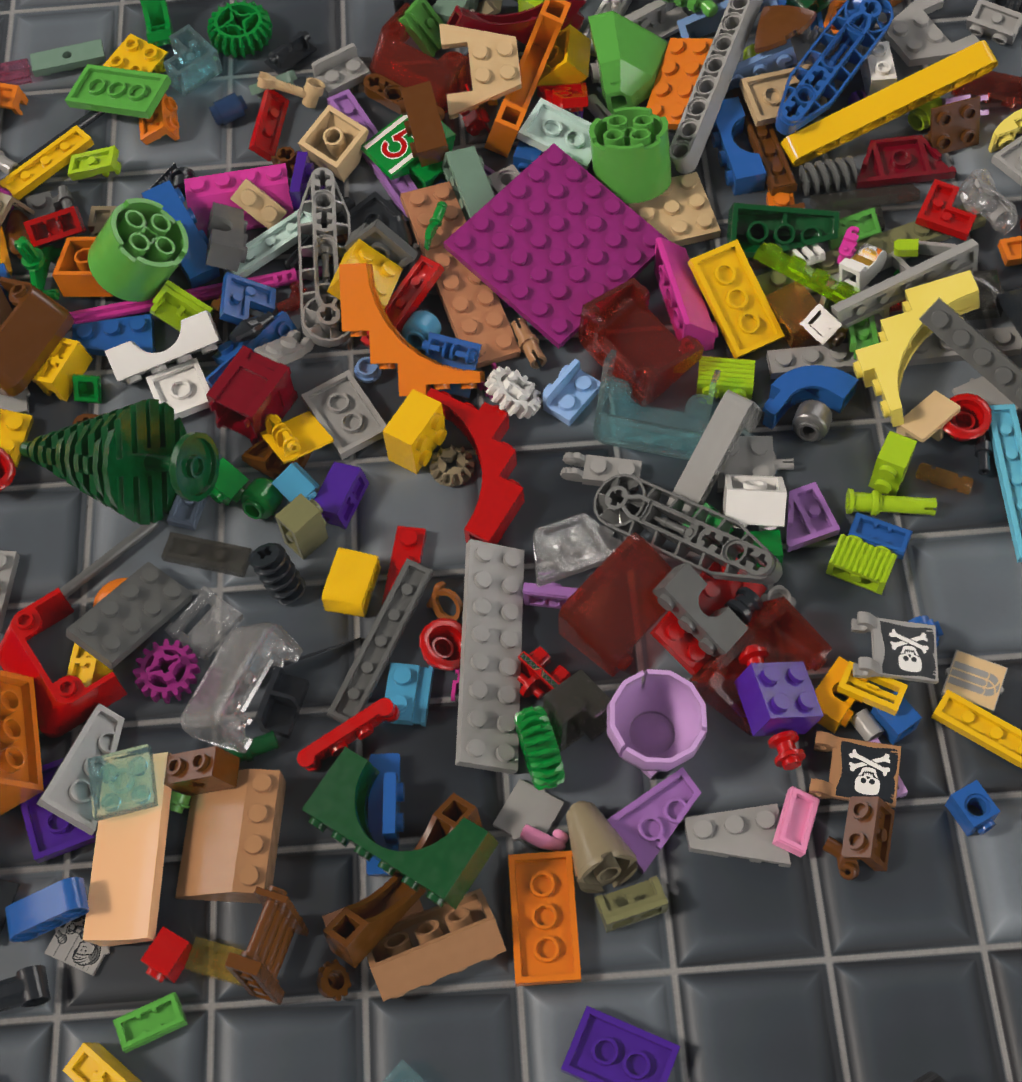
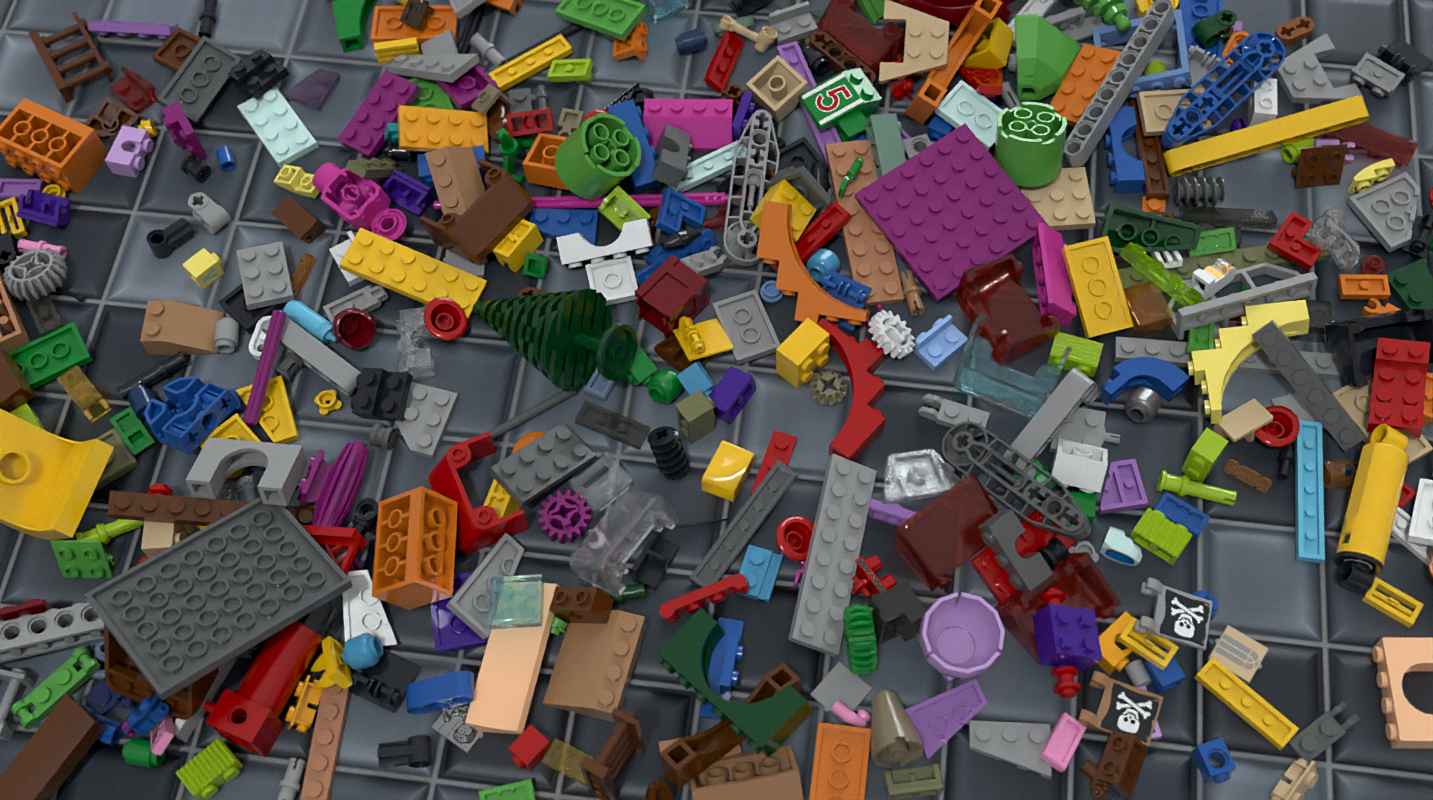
camera: 10 degrees right, 0 degrees up
(258, 204) = (703, 131): tan plate -> none
(375, 107) = (815, 60): none -> black cone
(423, 123) = (856, 86): reddish brown brick -> none
(434, 603) = (793, 501): dark orange piece -> none
(779, 24) = (1182, 50): reddish brown brick -> none
(819, 585) = (1121, 548): none -> light aqua rock
(825, 327) = (1169, 326): bracket -> none
(848, 245) = (1203, 258): dark pink piece -> none
(902, 162) = (1267, 189): dark red wing -> none
(906, 247) = (1255, 267): lime piece -> none

